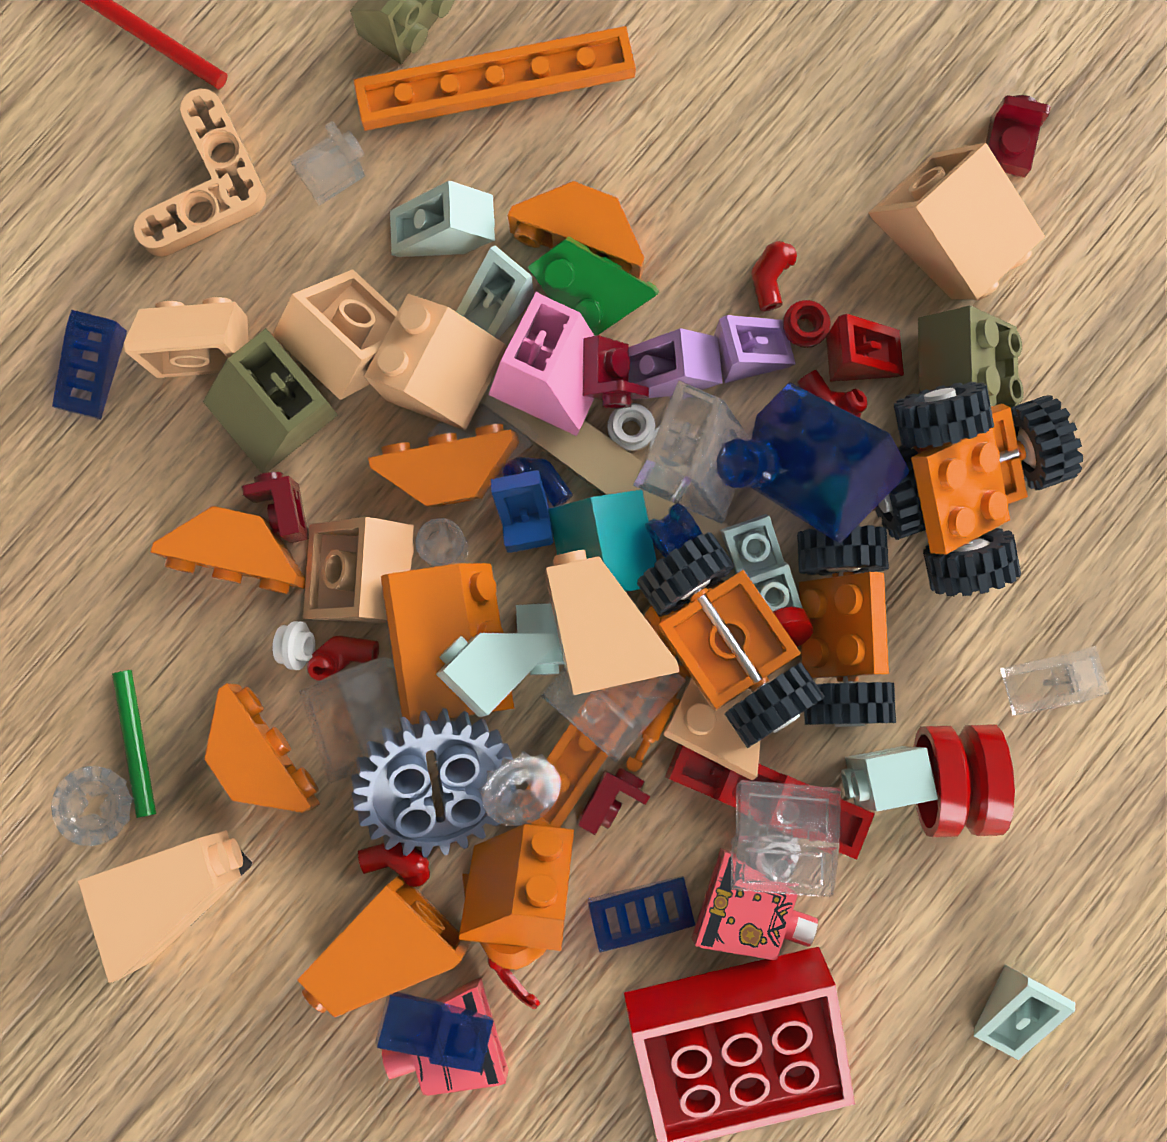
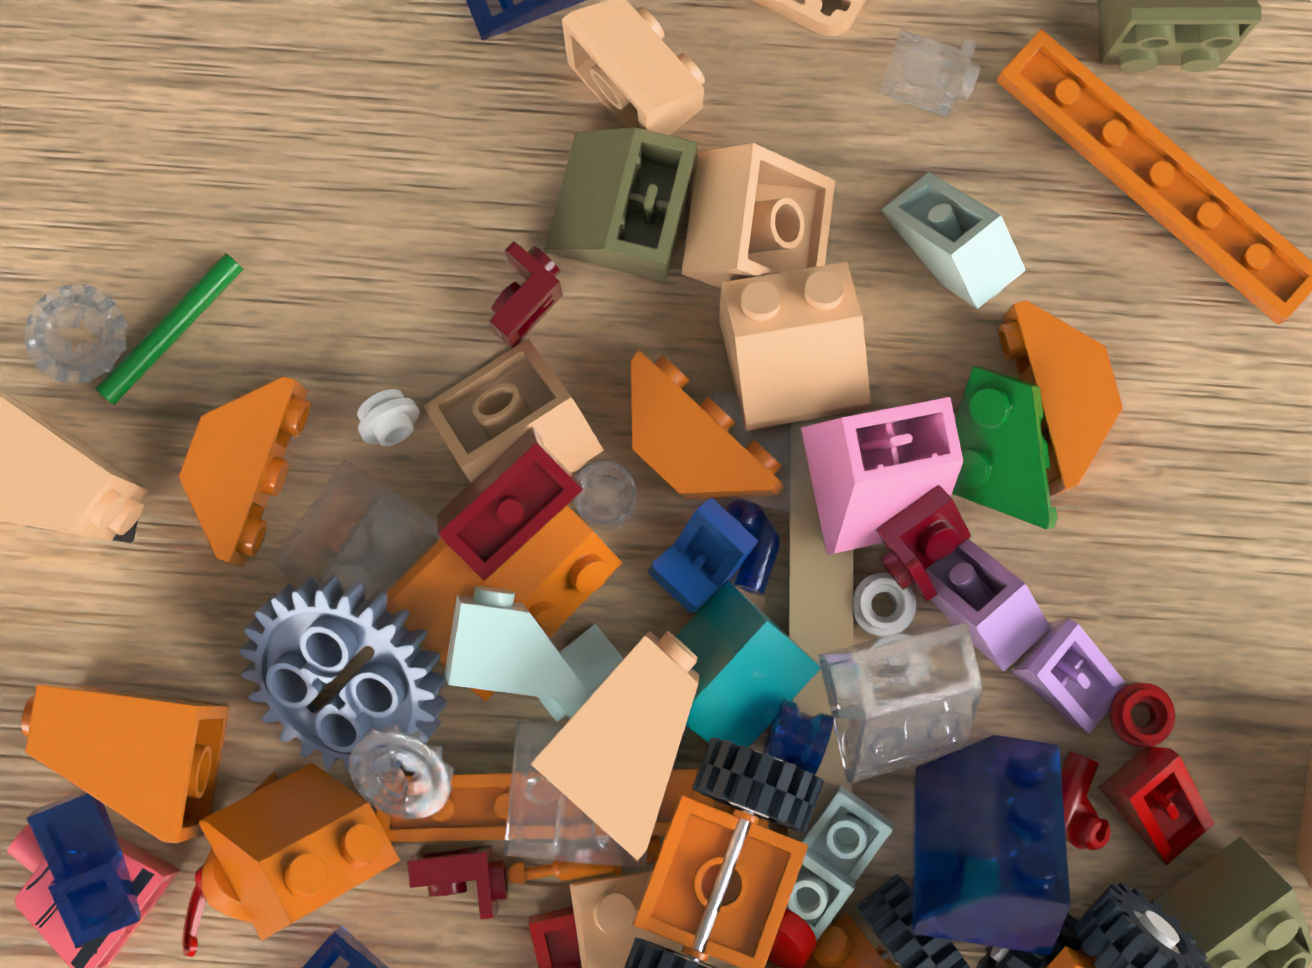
camera: 55 degrees right, 0 degrees up
(232, 546) = (443, 280): orange slope -> none
(338, 653) = (411, 470): red arm -> none
(403, 602) = (507, 505): none -> dark red panel
(411, 867) = (242, 715): red arm -> none
(497, 293) = (917, 354): light aqua slope -> none
(739, 472) = (914, 763): clear blue wheel -> none
(770, 265) = (1170, 628): red arm -> none

